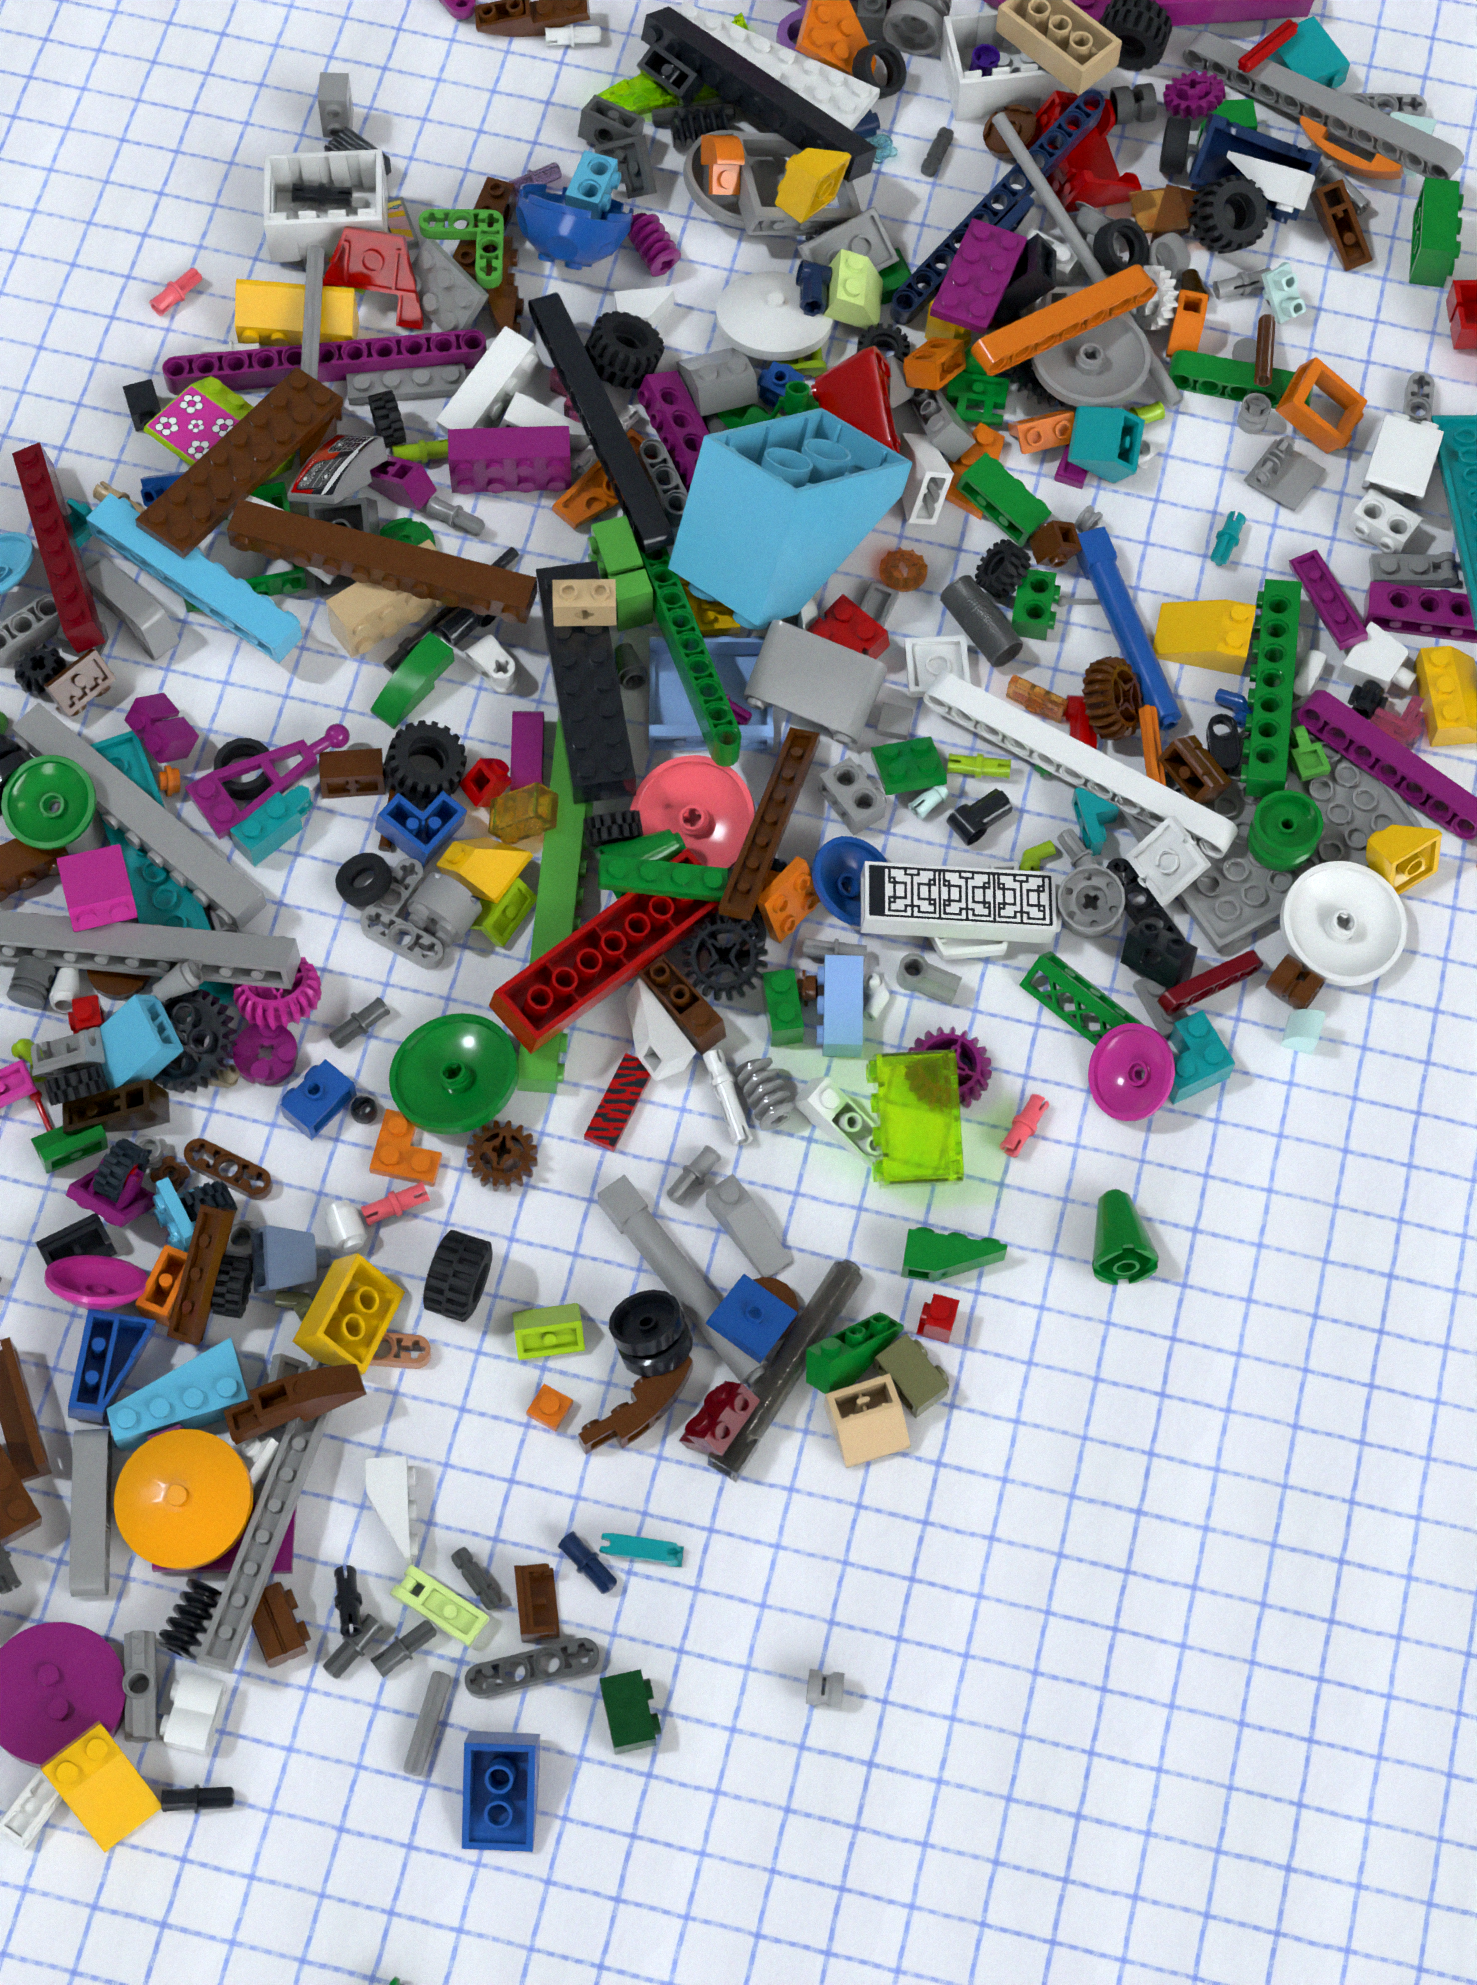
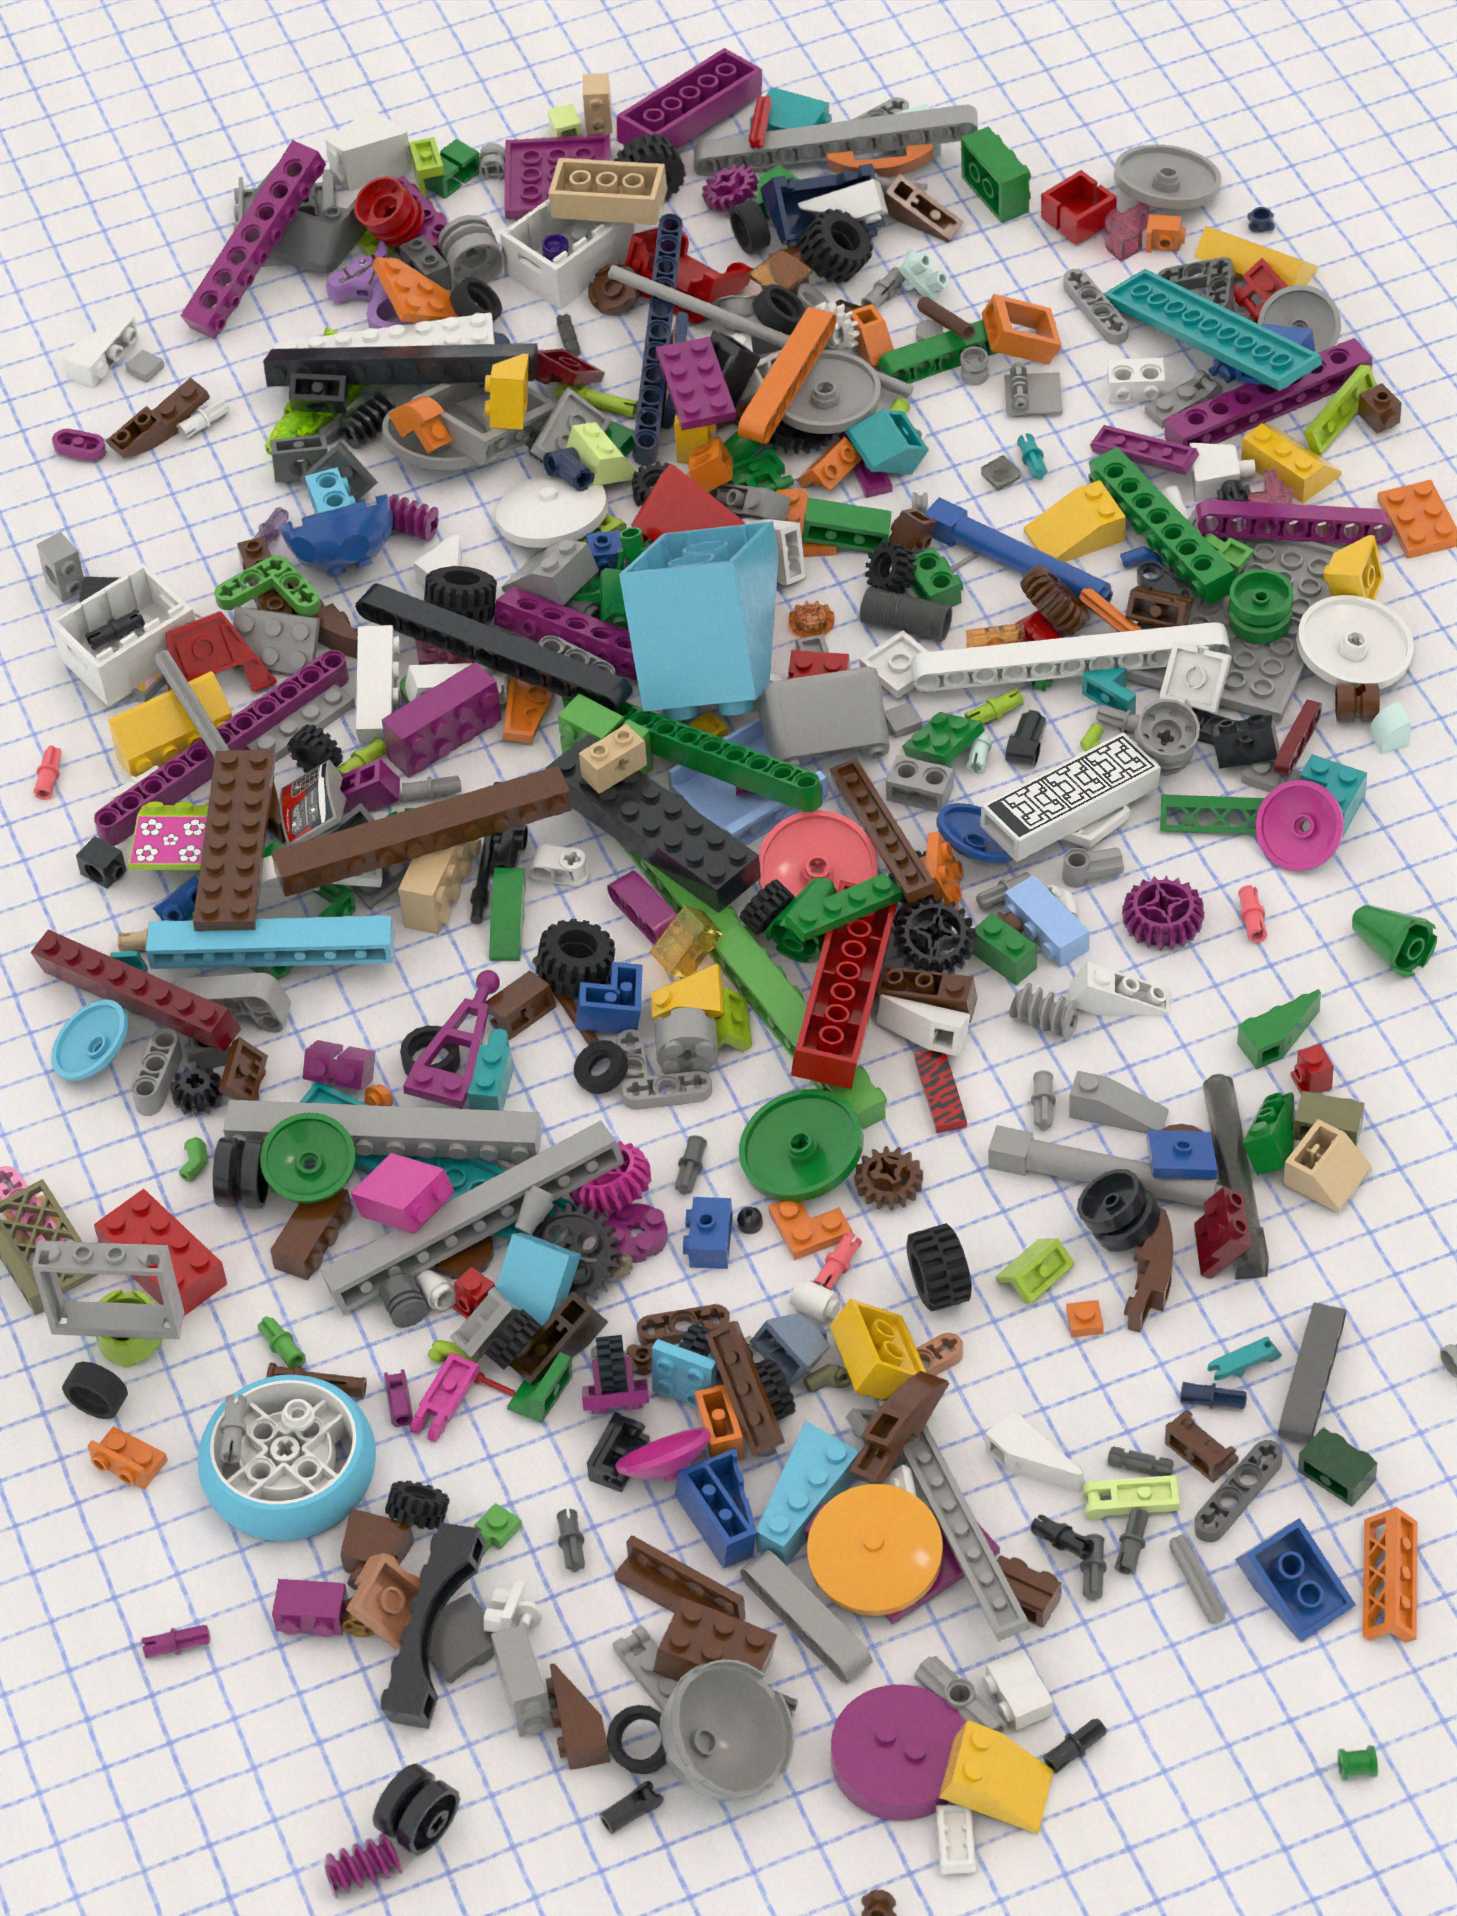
camera: 30 degrees left, 15 degrees down
(190, 1618) = (955, 1628): black piece -> none
(486, 781) = (626, 946): red brick -> none
(587, 1851) = (1397, 1570): none -> orange fence
(686, 1606) = (1312, 1373): none -> dark grey beam
(723, 1085) = (1008, 1028): white pin -> none
(898, 222) = (602, 400): none -> lime pin
(899, 184) = (564, 367): none -> dark red plate
(916, 1119) = (1182, 945): clear neon green windscreen -> none
(1134, 103) = (696, 215): dark grey wheel -> none
(1186, 535) = (1000, 472): none -> clear smoke plate
(1403, 457) = (1114, 327): white slope -> none

